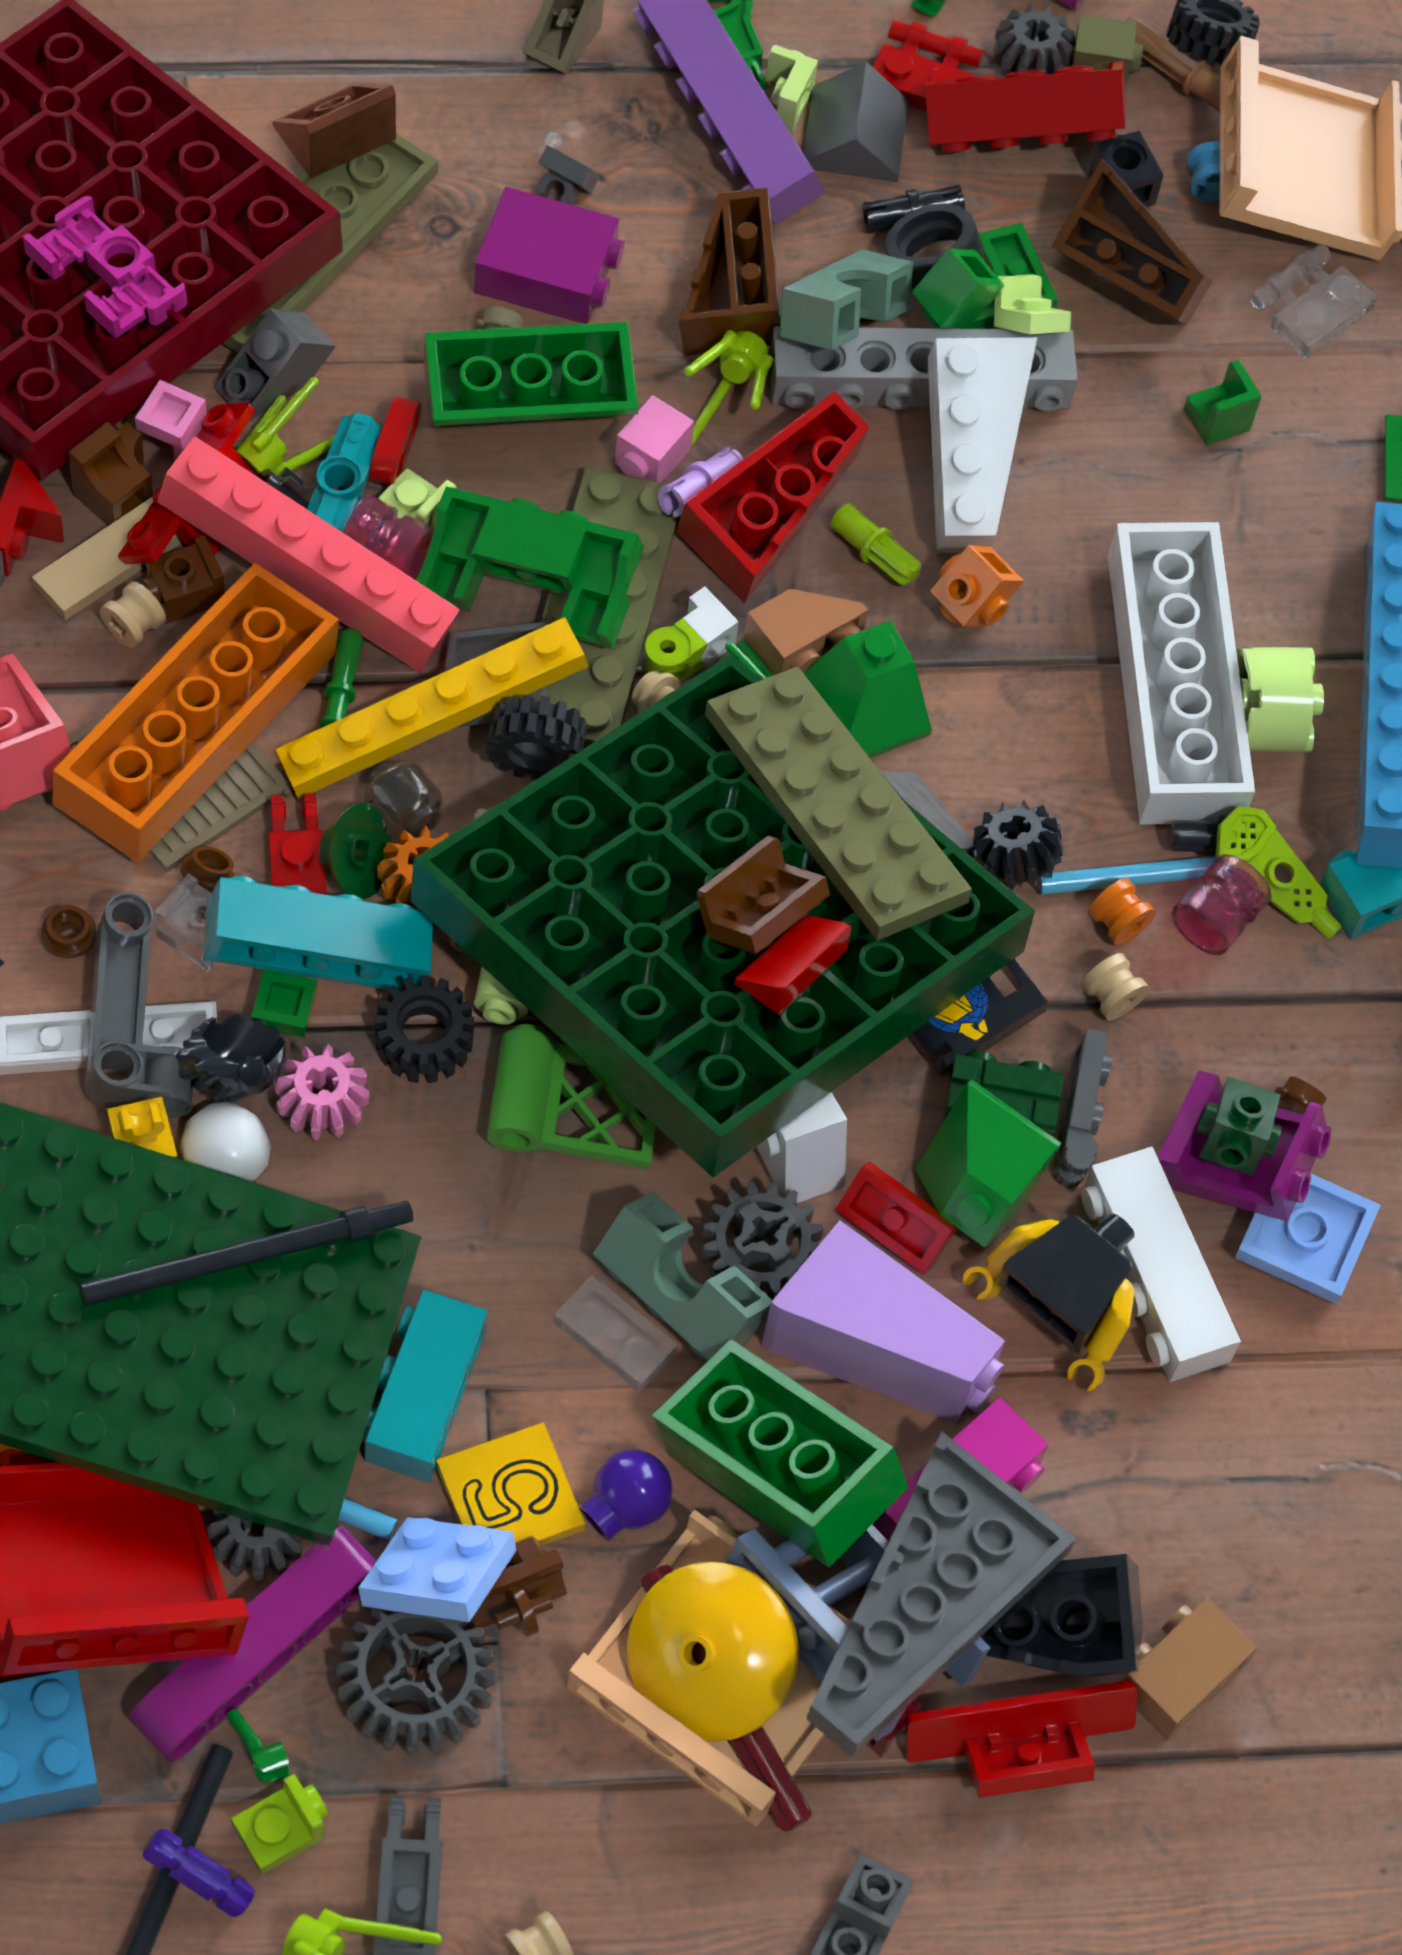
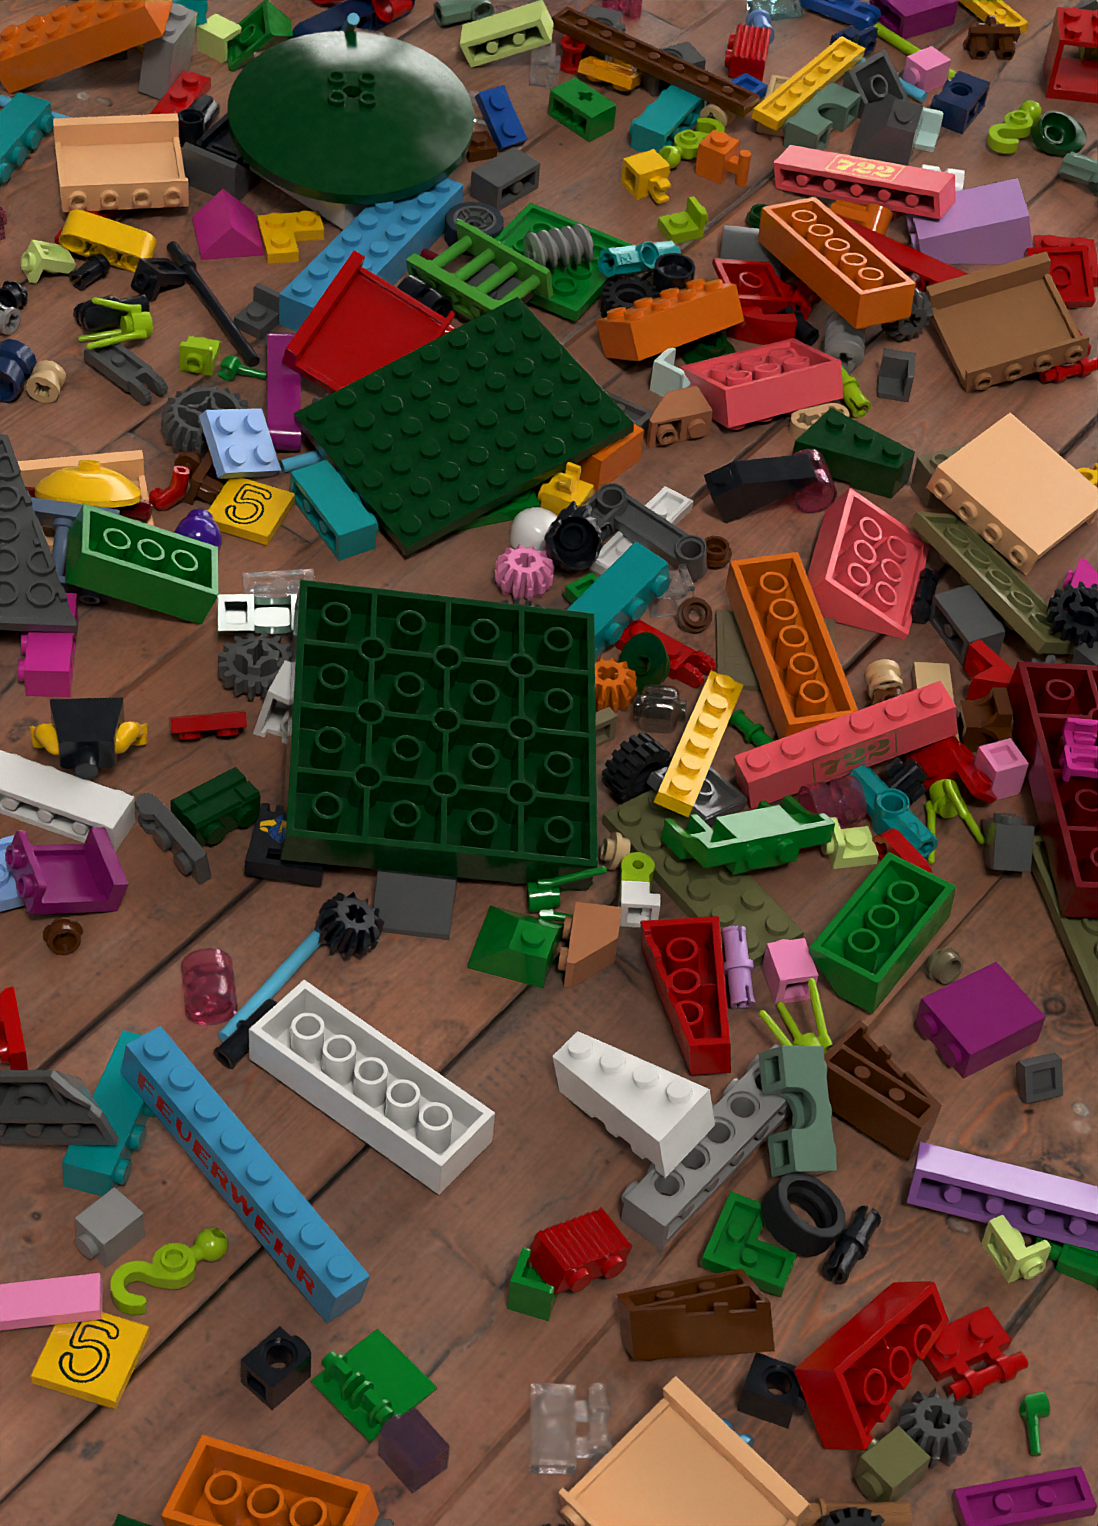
camera: 135 degrees right, 15 degrees down
(116, 1825) = (261, 314): none -> dark grey bracket
(198, 1872) = (209, 315): dark purple axle -> none
(352, 1226) = (432, 504): black bar -> none
(584, 1598) = (174, 493): none -> red arm
(758, 898) = (415, 702): reddish brown bracket -> none
(794, 961) = (365, 691): red slope -> none
(838, 803) = (447, 808): olive plate -> none
(856, 125) = (955, 1265): dark grey slope -> none
(875, 544) = (614, 1025): lime axle -> none
(883, 1329) = (153, 655): lavender slope -> none
(957, 289) = (749, 1173): green brick -> none
(975, 587) = (532, 1050): orange brick -> none
(984, 1164) = (182, 751): green slope -> none
(1024, 311) = (700, 1207): yellowish green bracket -> none
(1115, 986) = (220, 906): tan wheel -> none
(1121, 911) = (259, 945): orange wheel -> none
(1160, 385) = (580, 1251): none -> red brick
(1240, 1126) = (74, 859): dark green brick -> none
(1266, 852) = (217, 1030): lime piece -> none
(1279, 697) = (299, 1107): yellowish green brick -> none

